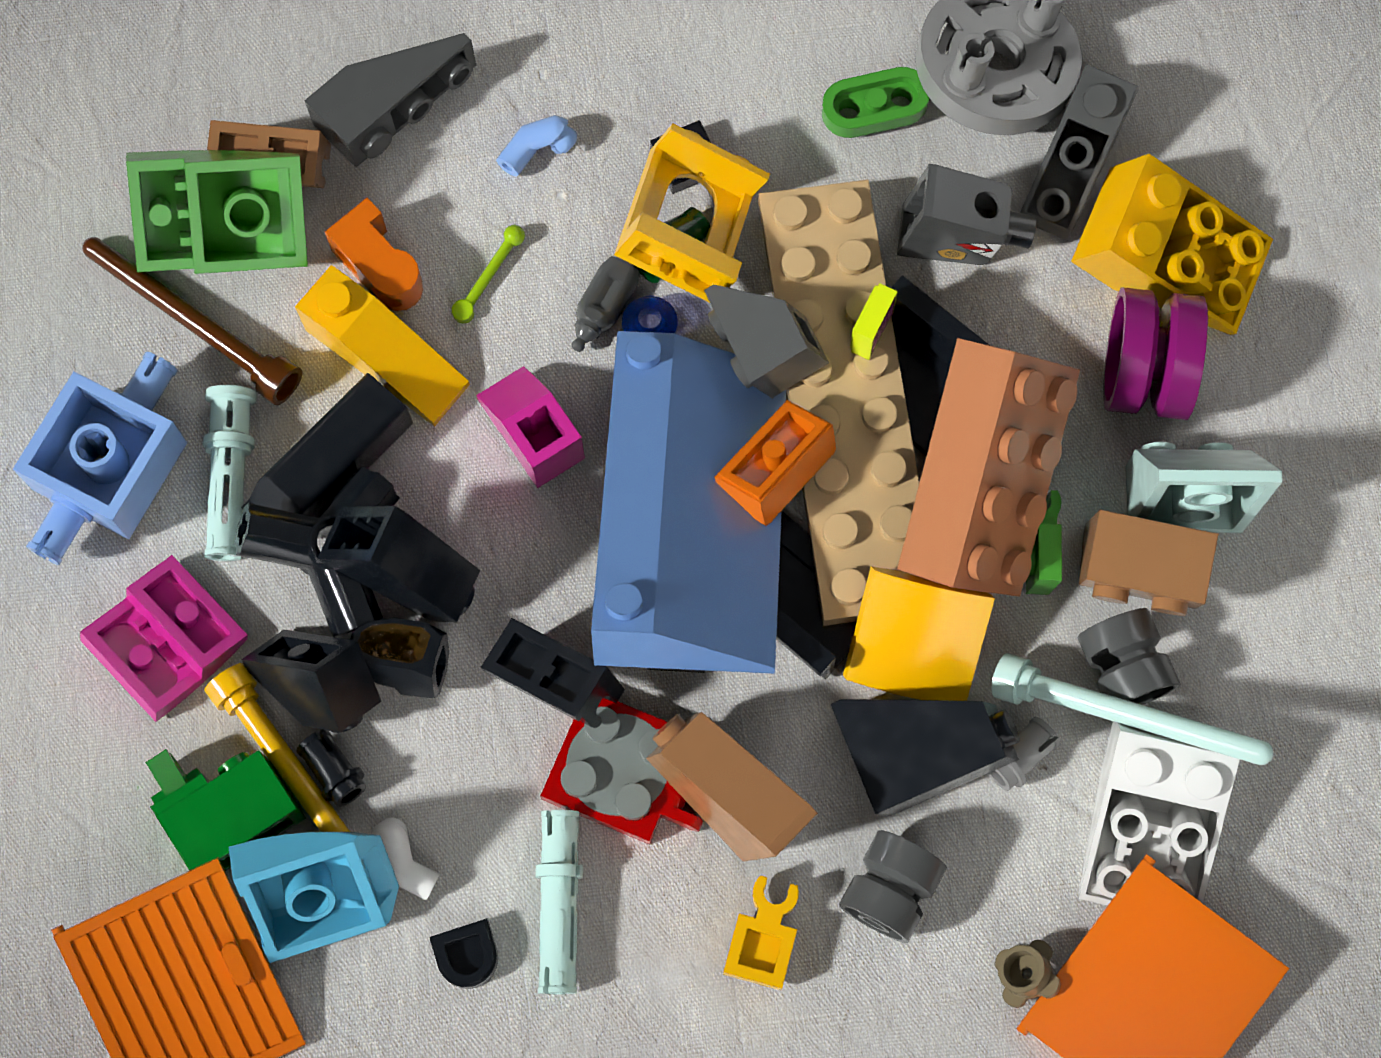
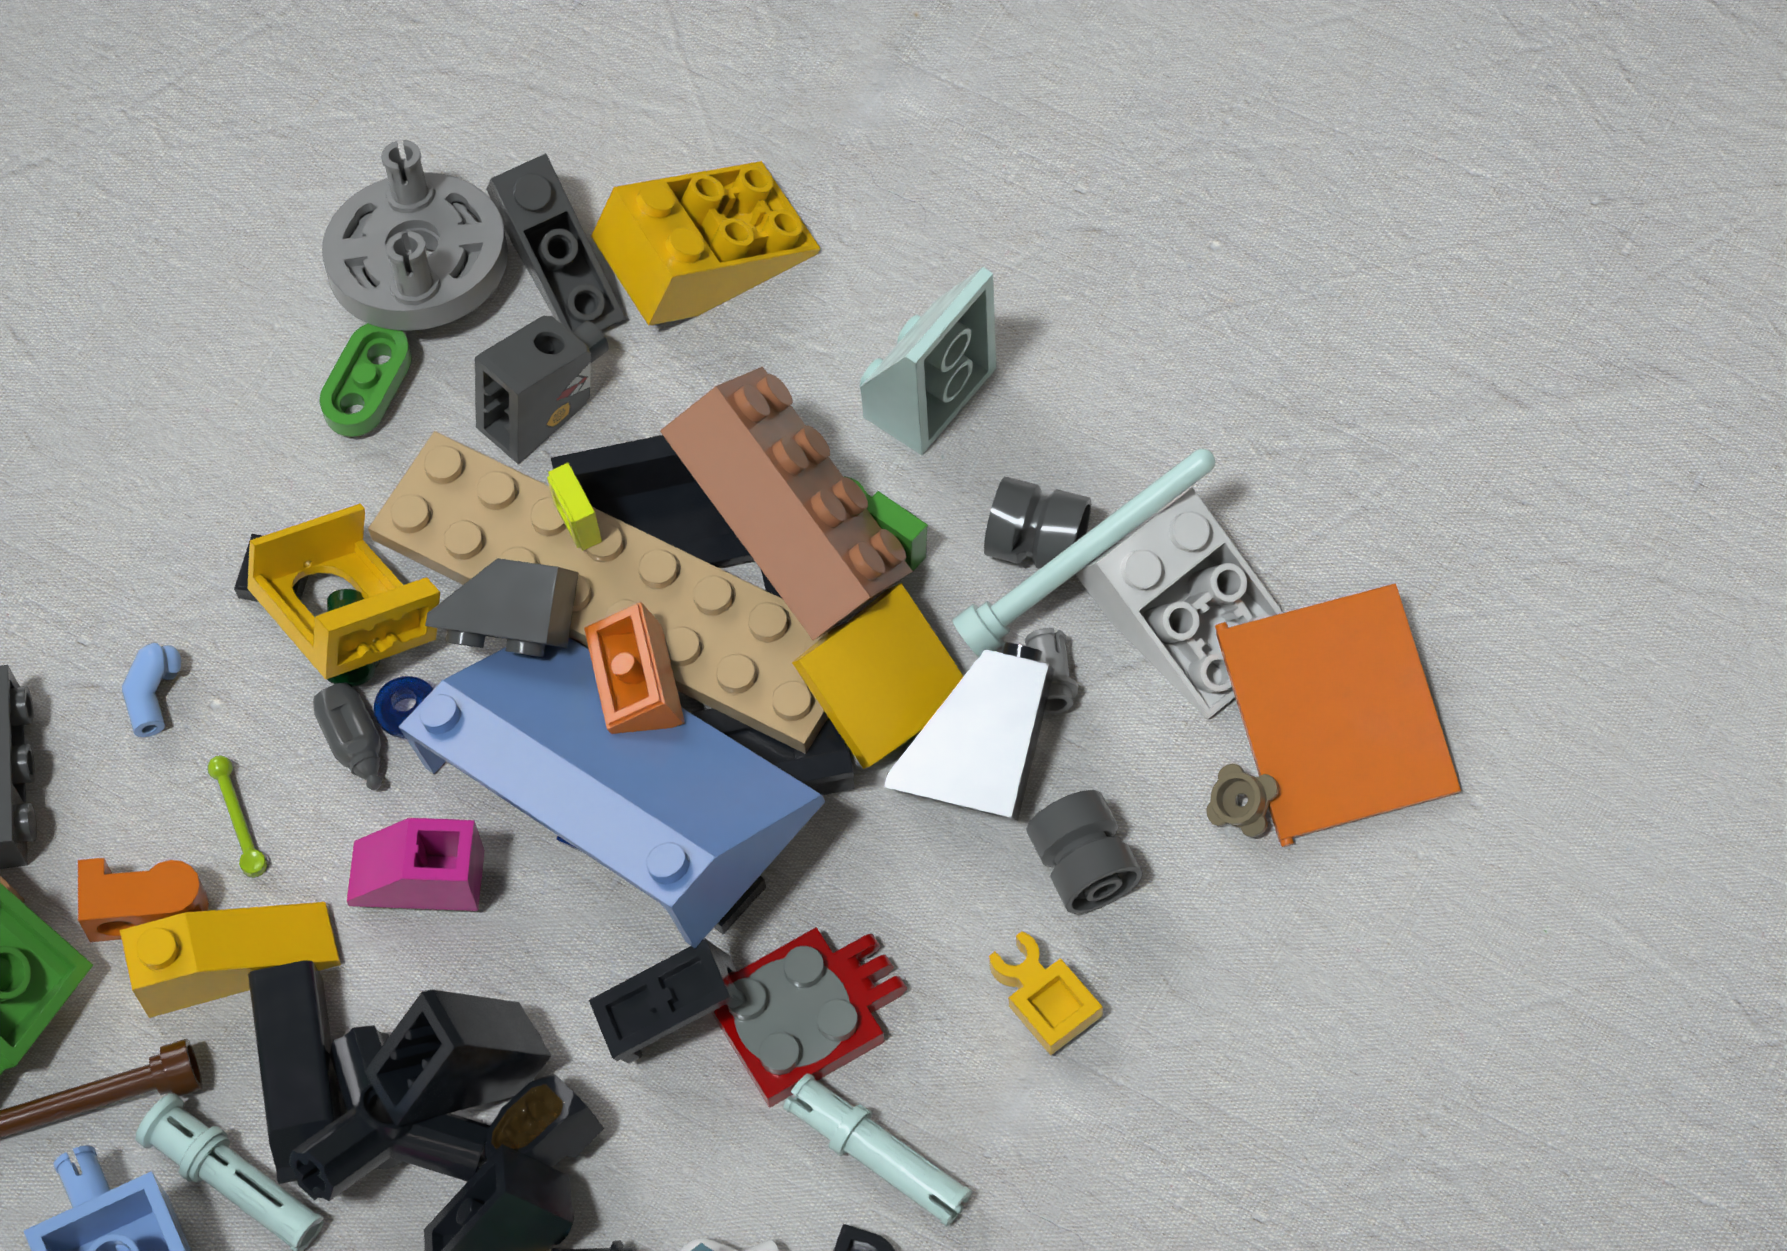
camera: 50 degrees left, 10 degrees down
(729, 787) = (894, 918): medium nougat slope -> none
(1147, 561) = (964, 443): medium nougat slope -> none
(1155, 353) = (790, 311): magenta wheel -> none

